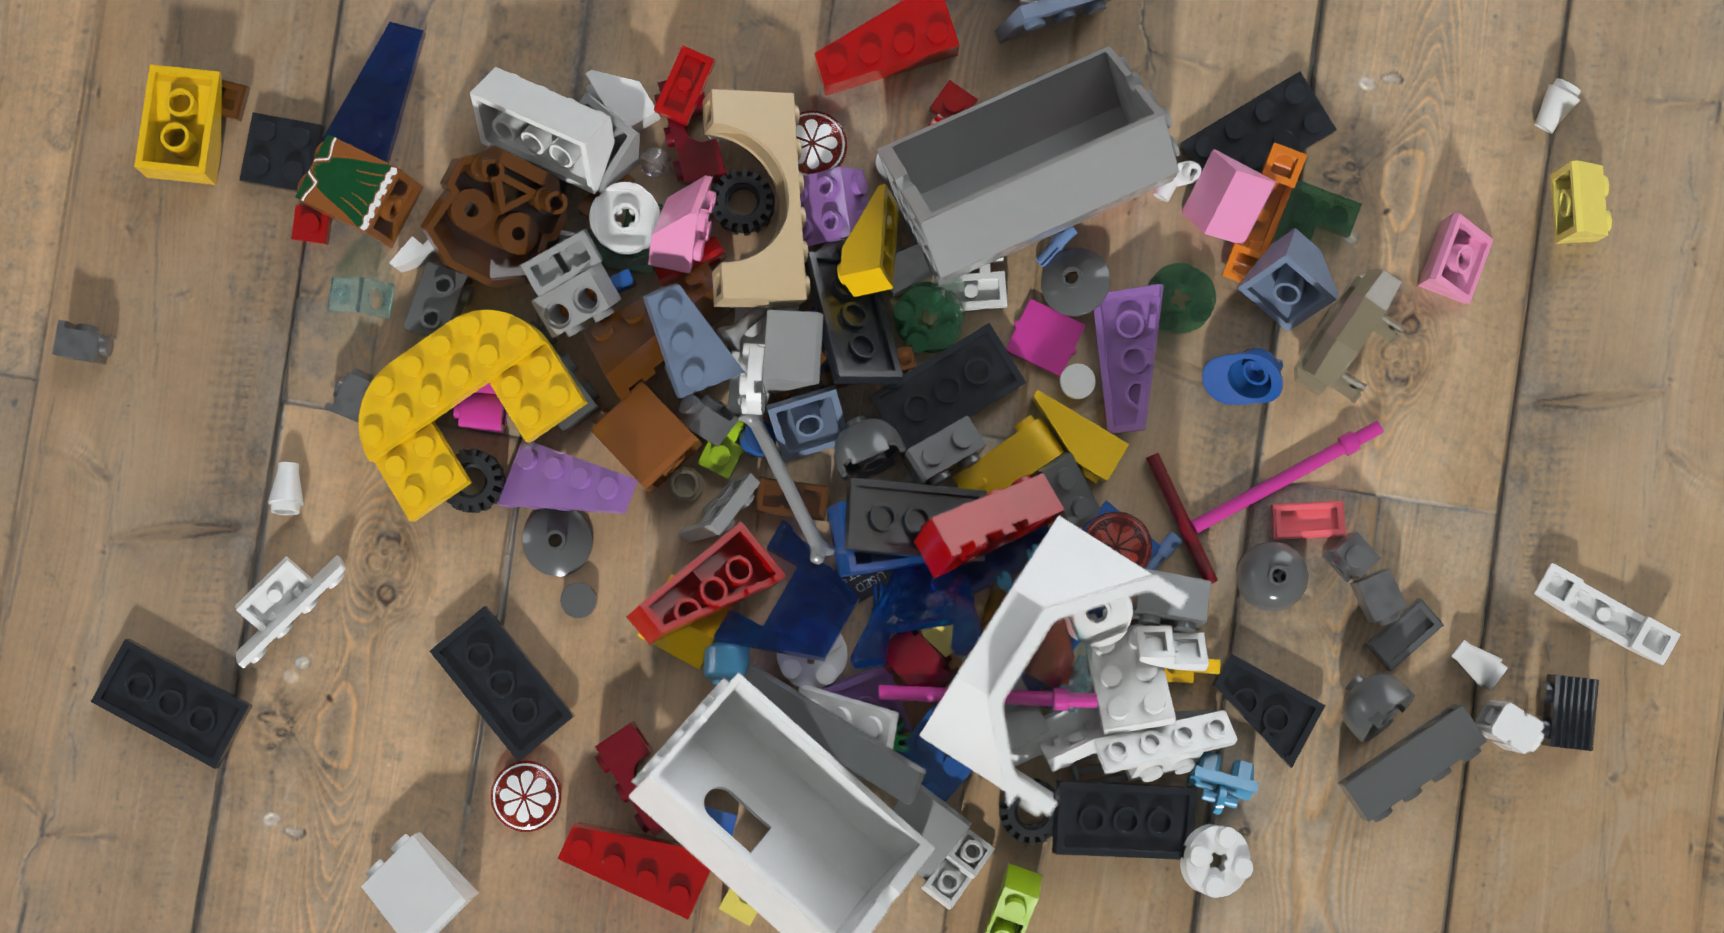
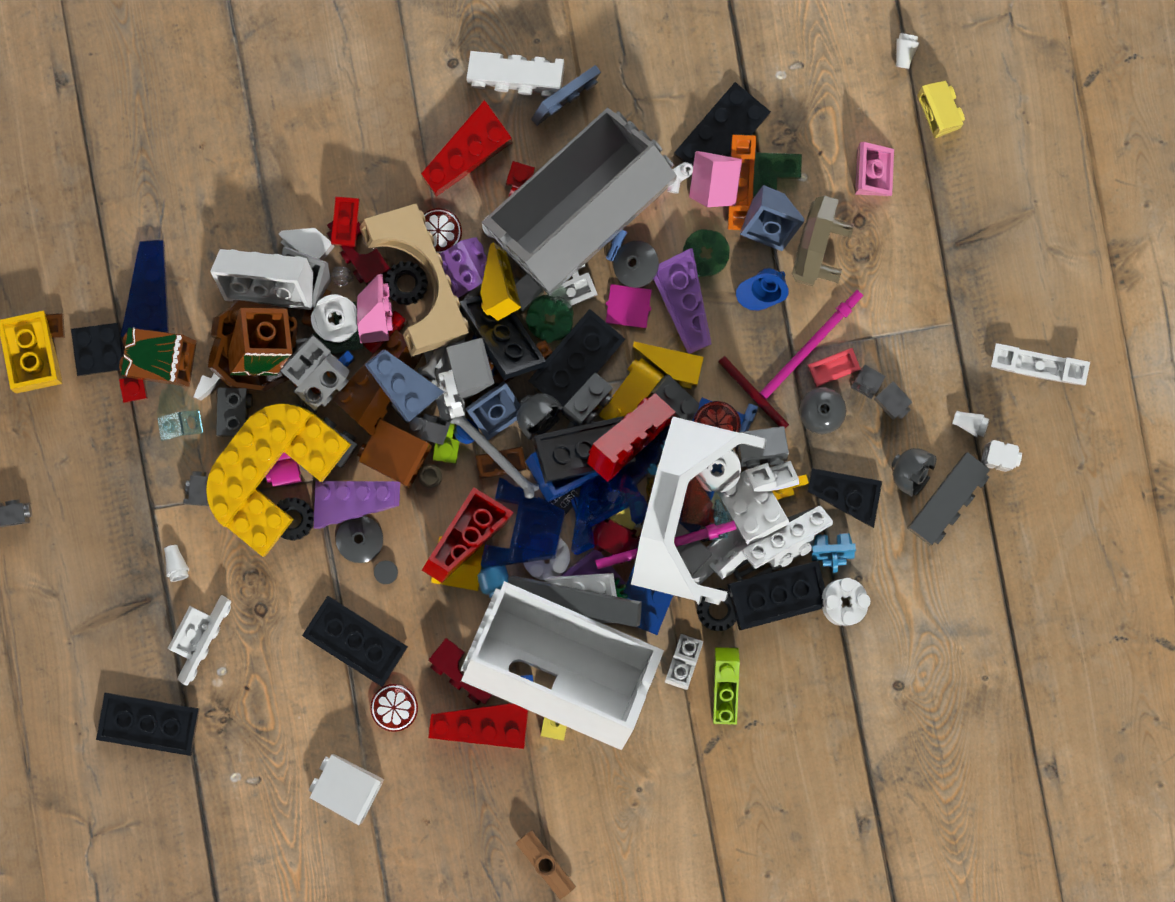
camera: 20 degrees left, 0 degrees up
(503, 213) = (260, 342): none -> dark orange slope
(722, 509) = (459, 483): light grey wing -> none
(935, 823) = (661, 636): light grey slope -> none
(1077, 381) = (658, 327): white tile -> none
(1404, 635) = (918, 419): dark grey tile -> none
(1569, 711) = (1037, 434): black brick -> none

